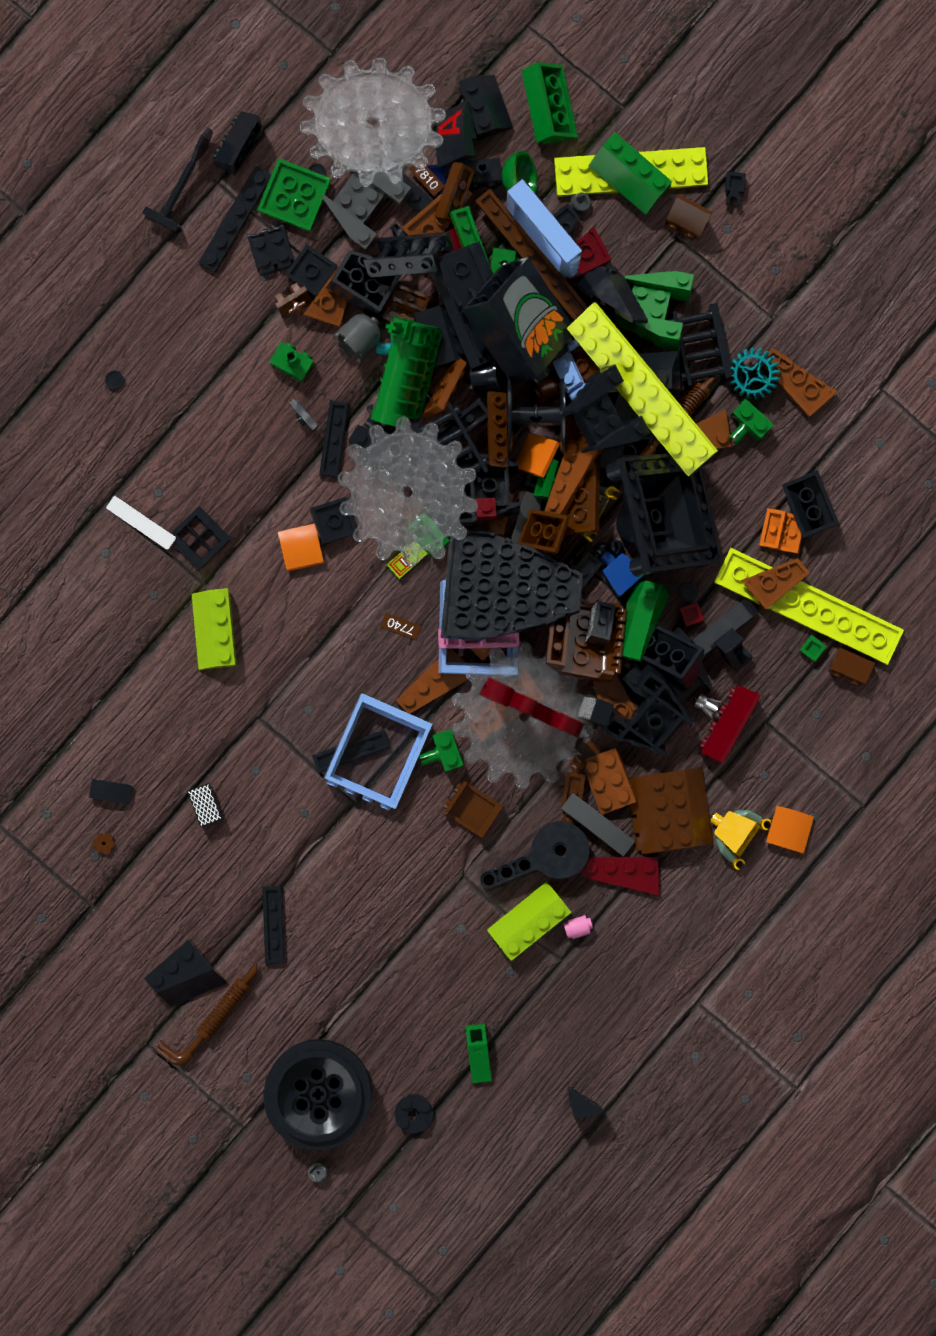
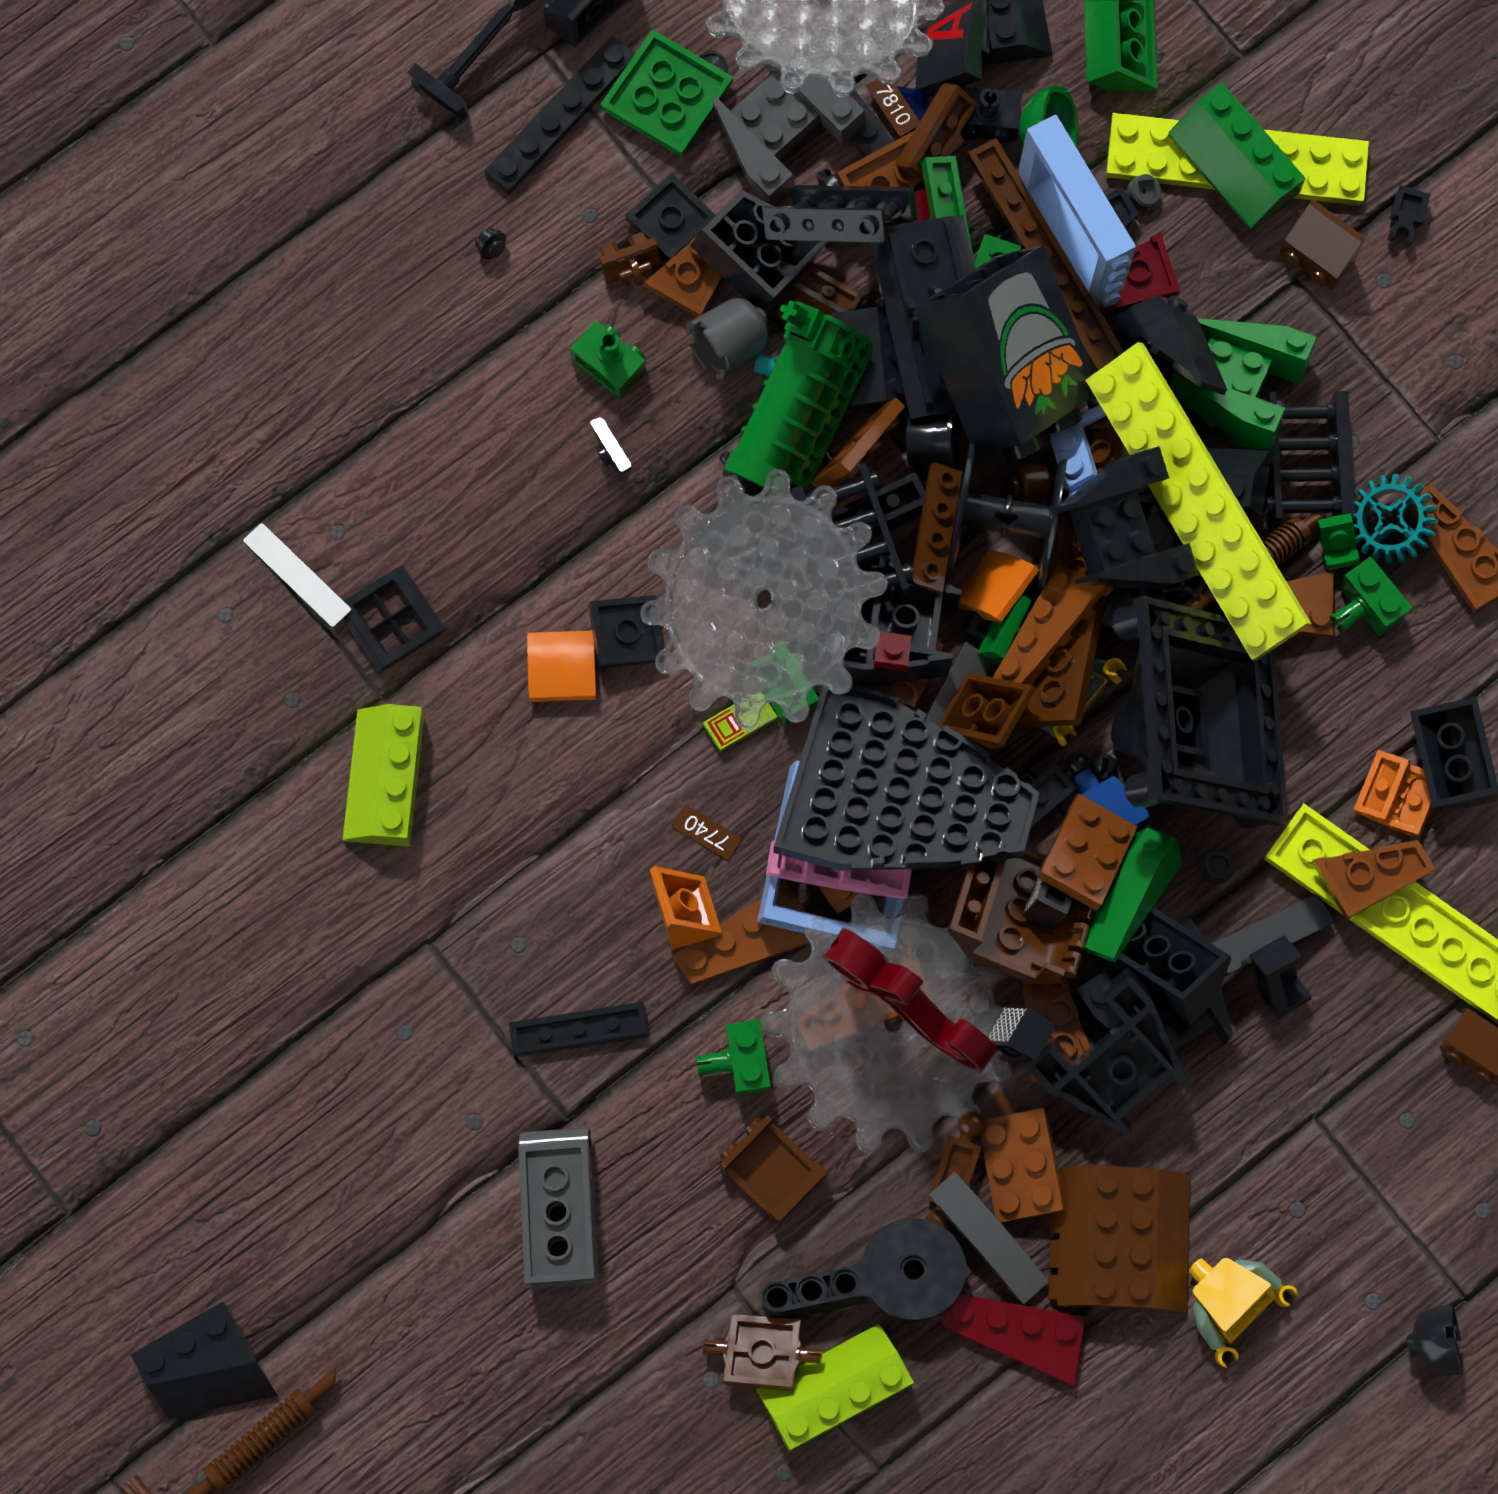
camera: 10 degrees right, 10 degrees down
(98, 843) = (104, 1103): reddish brown plant -> none
(110, 791) = (144, 1018): black slope -> none
(114, 380) = (303, 334): black piece -> none
(205, 805) = (304, 1073): black panel -> none
(210, 306) = (490, 243): none -> black plate
(271, 250) = (610, 174): black plate -> none
(273, 924) = (380, 1308): black tile -> none
(334, 439) = (654, 498): black tile -> none
(356, 834) = (557, 1175): none -> dark grey hinge
(361, 434) = (703, 496): black plate -> none
(391, 713) = (665, 977): light blue window -> none
(397, 672) = (684, 907): none -> orange slope
(486, 910) = (762, 1352): none -> reddish brown plate
(578, 927) = (920, 1414): bright pink brick -> none
(614, 601) = (1087, 852): none -> dark orange plate
(691, 614) = (1216, 905): dark red plate -> none
(704, 703) = (1212, 1057): flat silver piece -> none
(726, 392) = (1338, 541): none -> green bracket
(730, 724) = (1251, 1105): dark red slope -> none
(790, 829) = (1328, 1312): orange slope -> none
(812, 648) = (1418, 1003): green plate -> none
(851, 834) = (1437, 1342): none -> black cylinder

